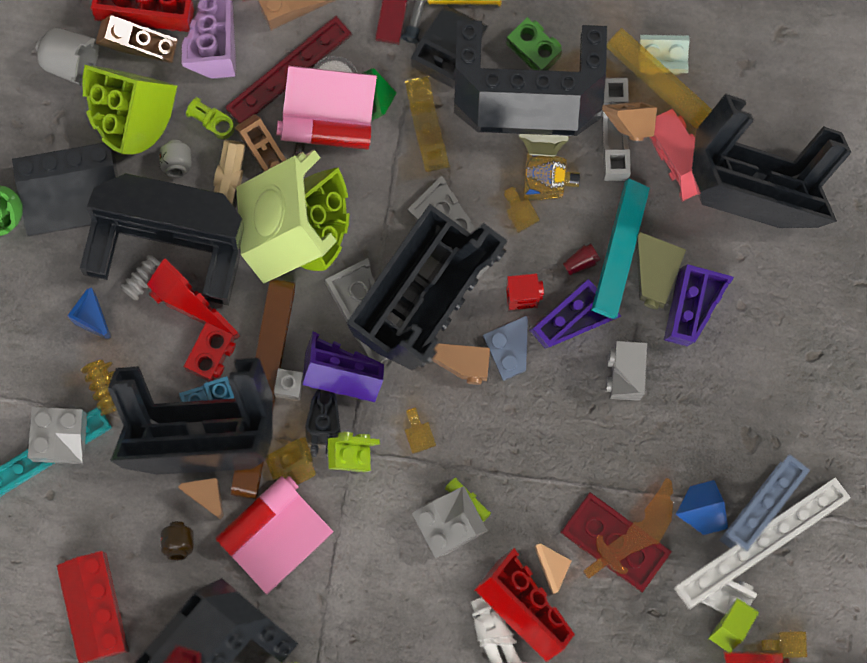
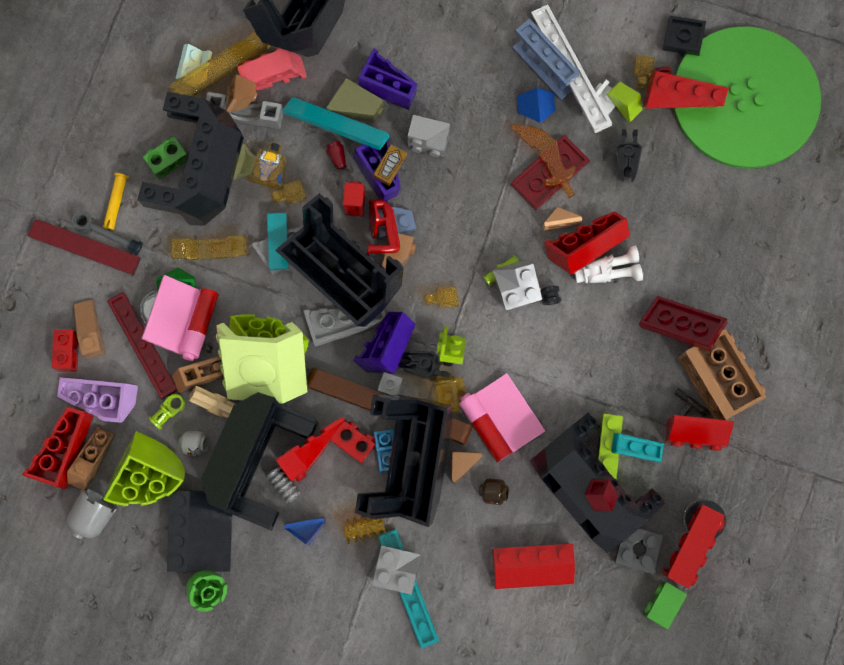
camera: 80 degrees left, 0 degrees up
(437, 48) = (151, 224): black slope -> none
(446, 570) = (550, 295): none -> black wheel
(455, 205) = (276, 237): none -> teal tile
(499, 343) = (388, 222): none -> red piece
(575, 327) = (390, 165): none -> tile
(657, 642) = (628, 152): none -> black hinge

